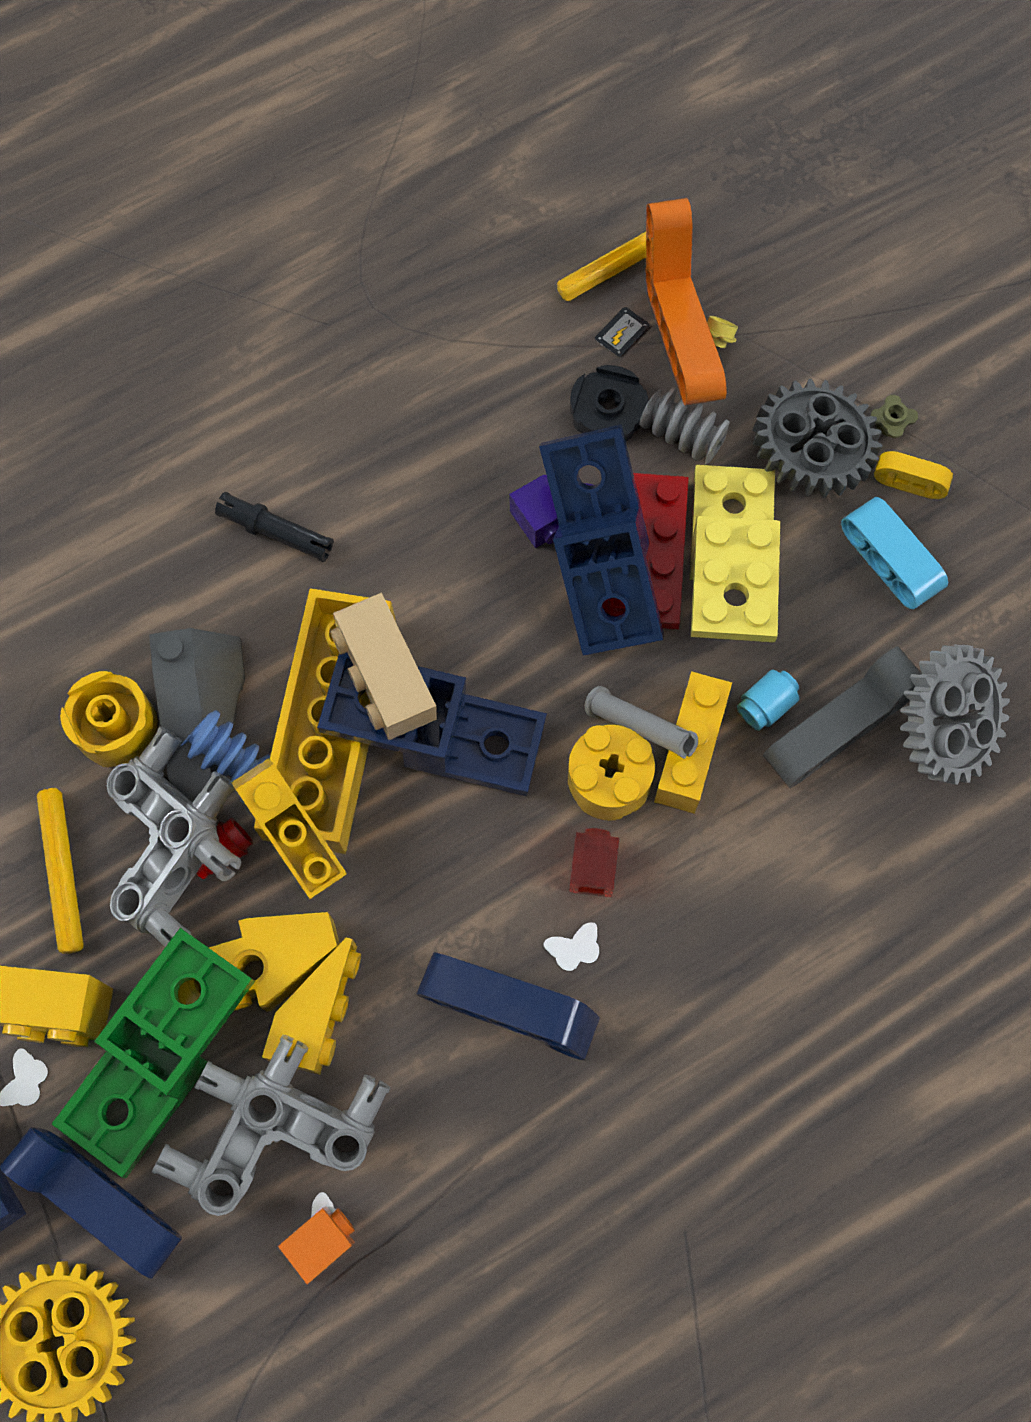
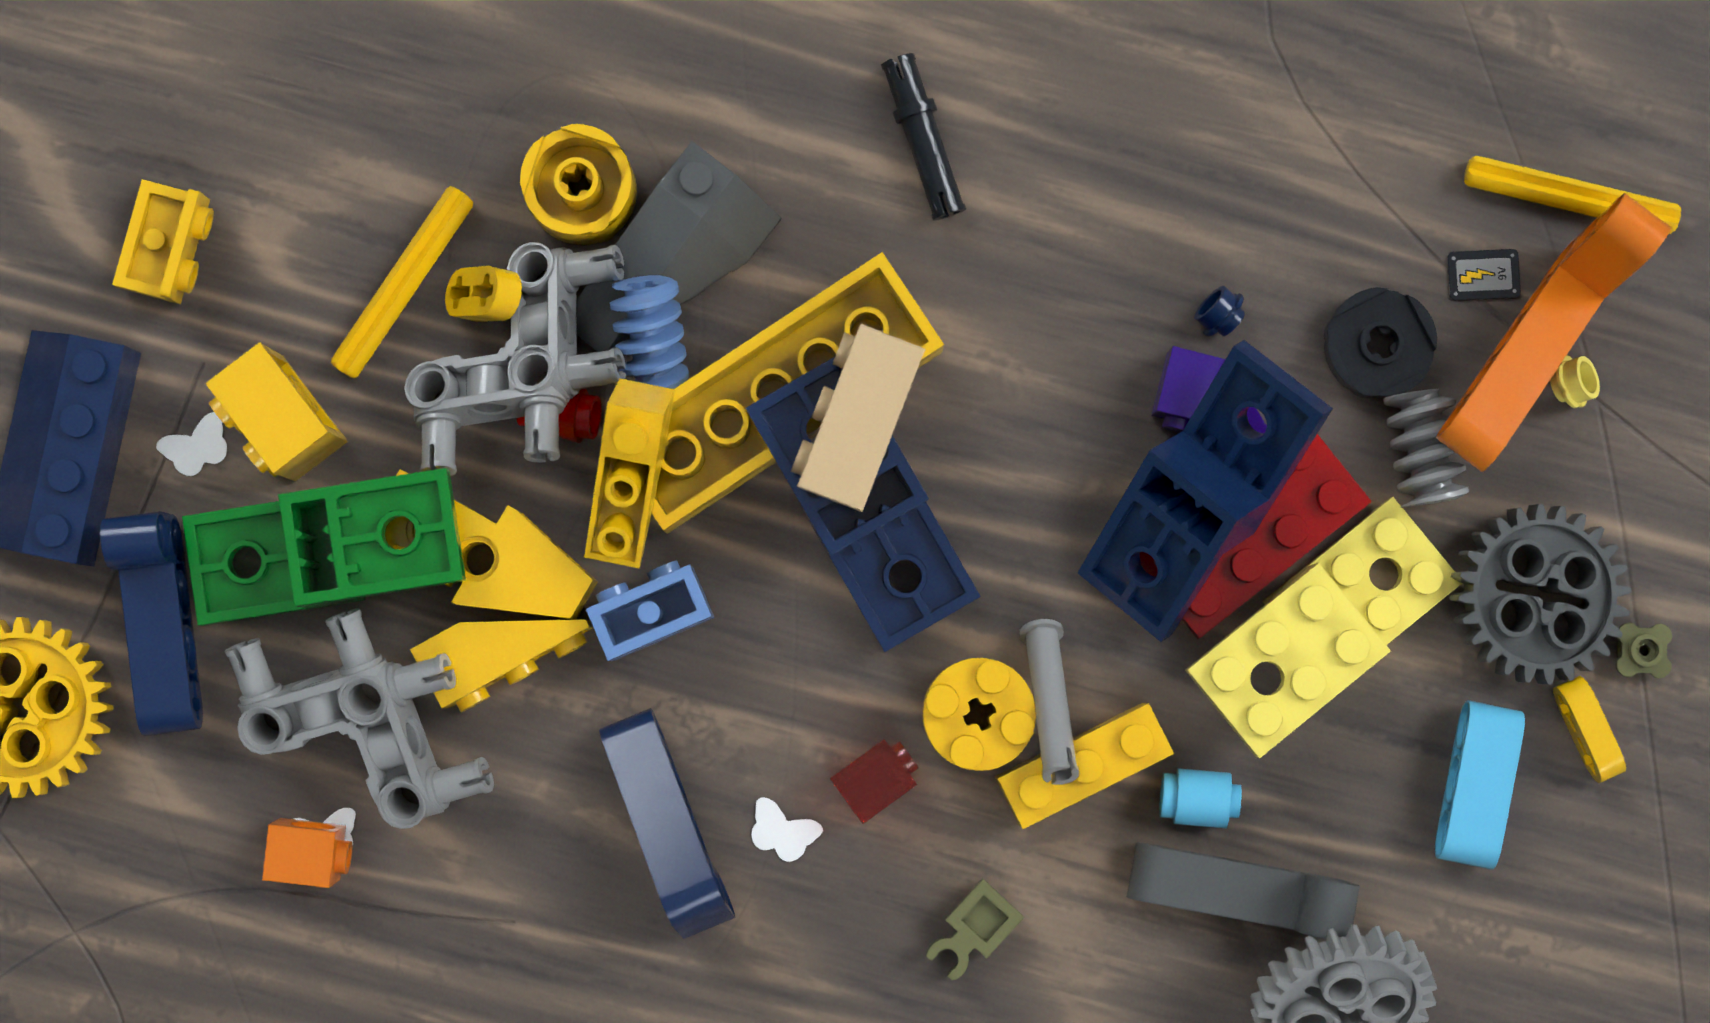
camera: 45 degrees right, 15 degrees up
(111, 824) = (483, 294): none -> yellow beam
(378, 898) = (649, 613): none -> medium blue brick
(515, 464) = (1220, 312): none -> dark blue plate
(731, 881) = (980, 923): none -> olive plate

